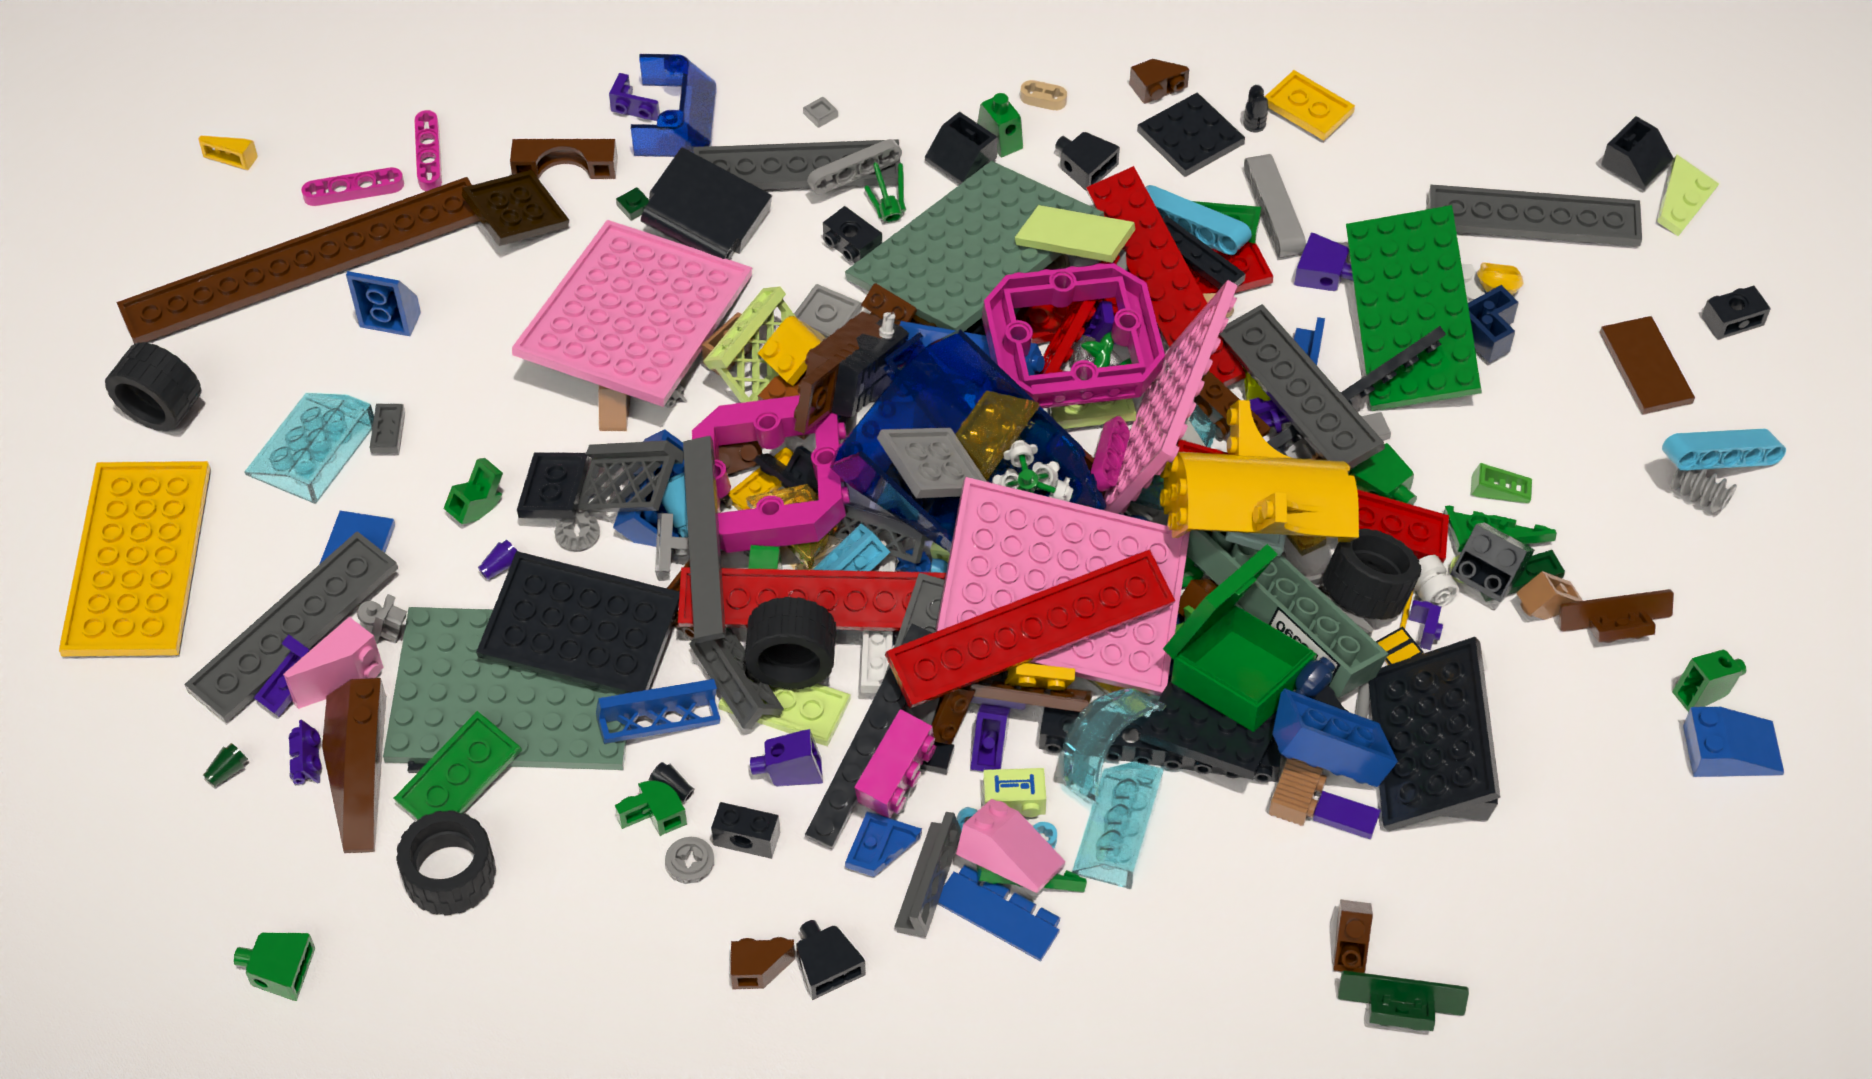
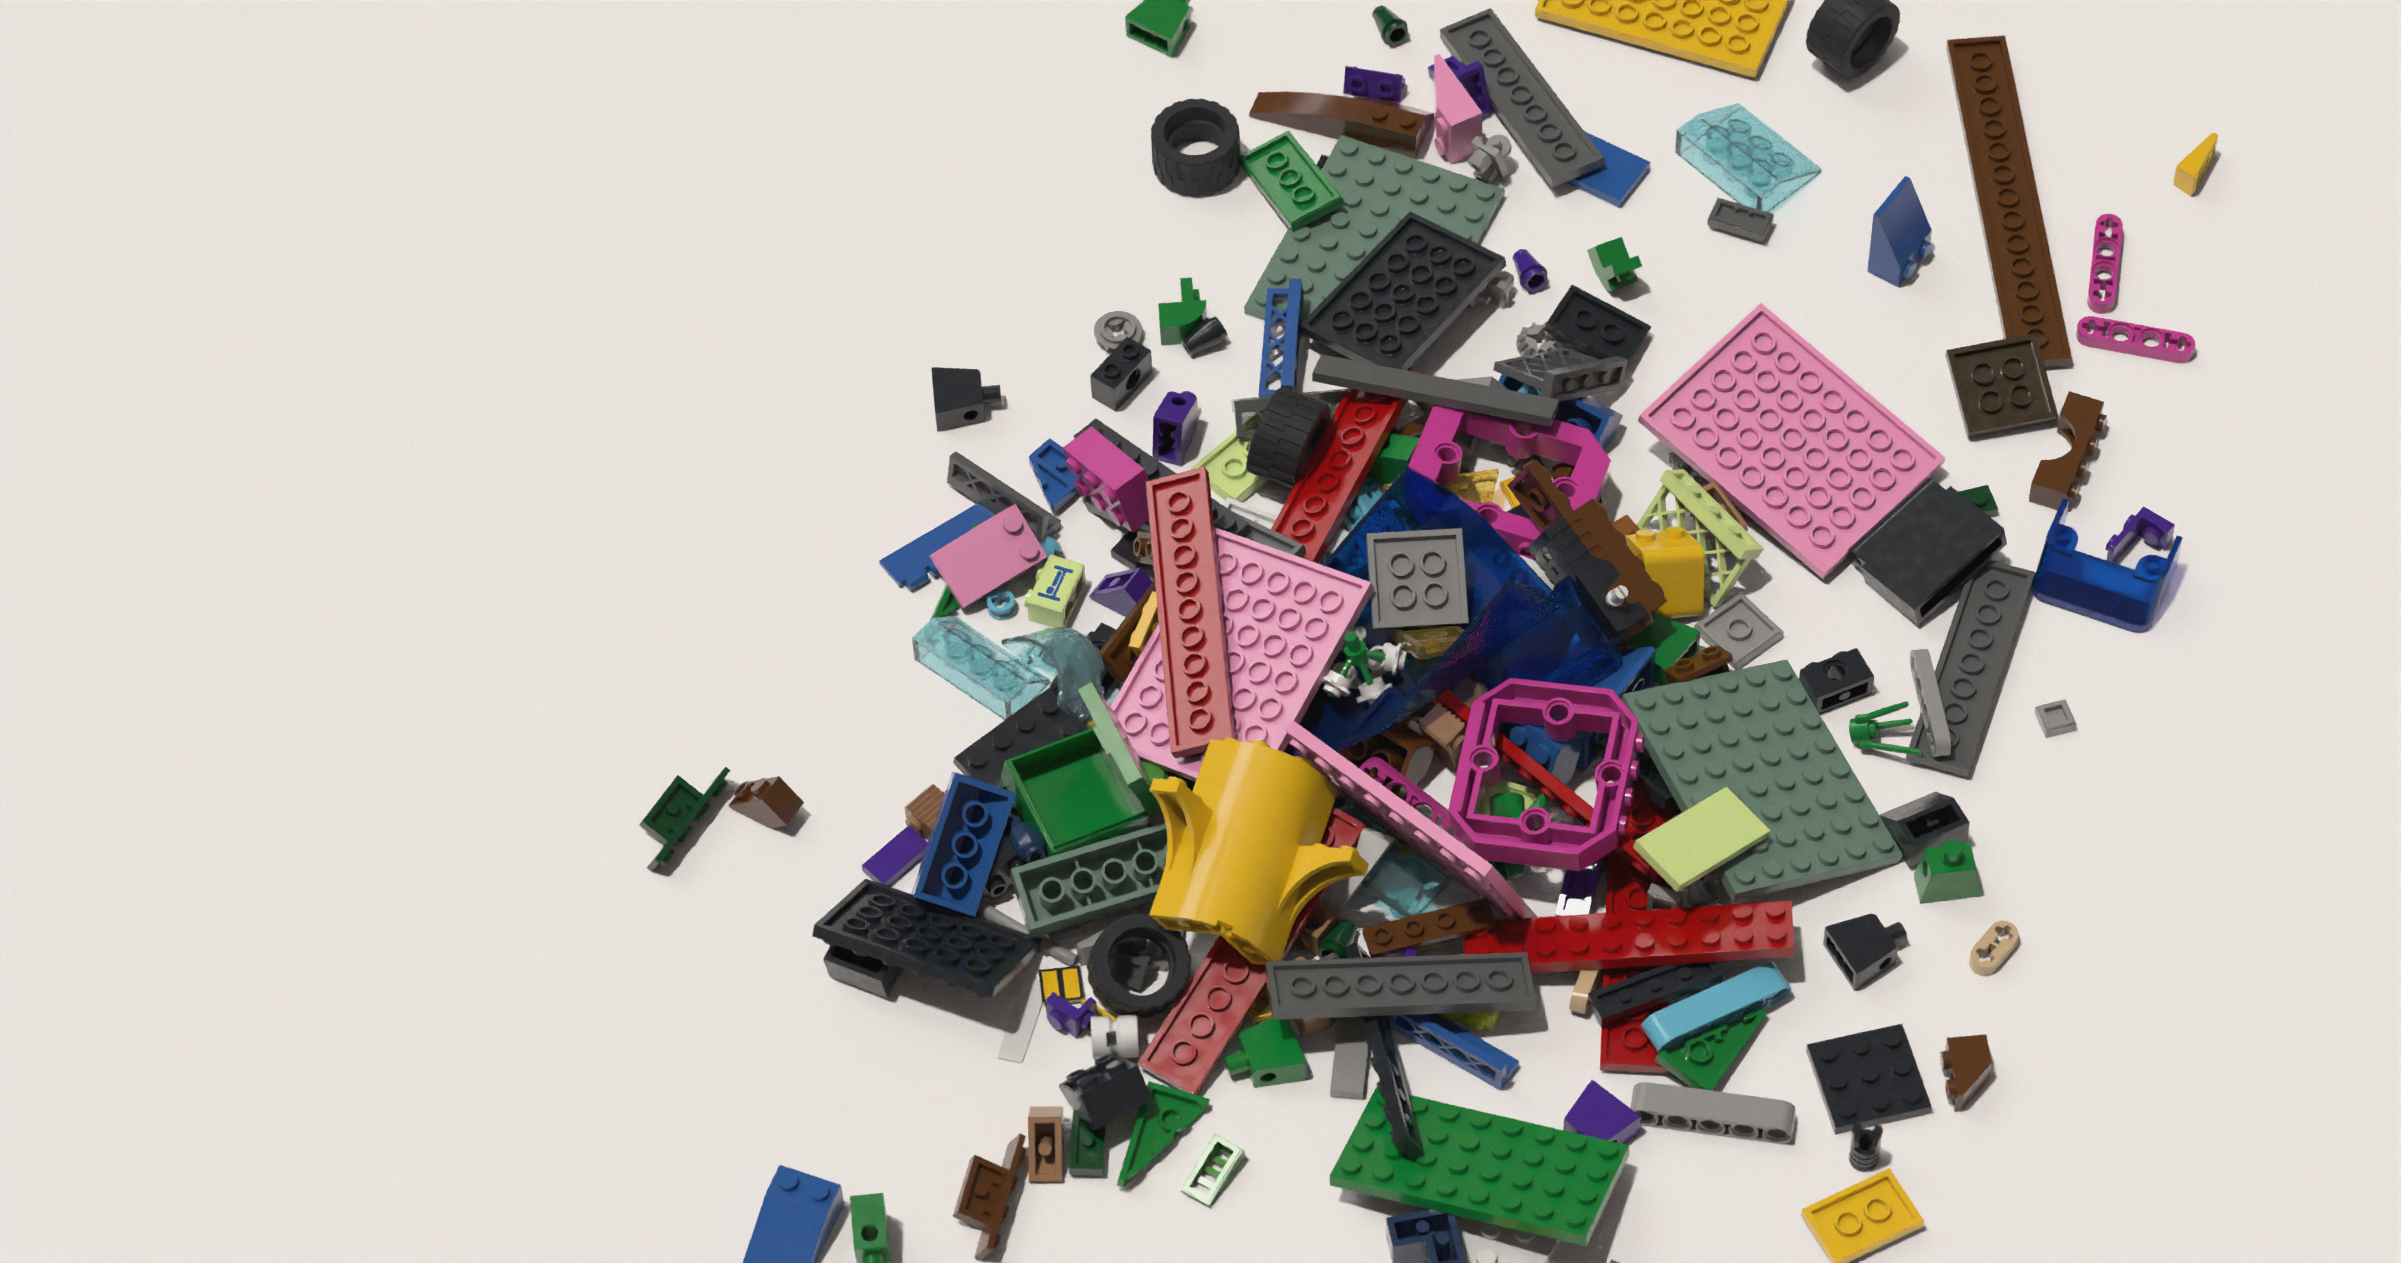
camera: 115 degrees right, 0 degrees up
(759, 961) = (984, 344): reddish brown slope -> none

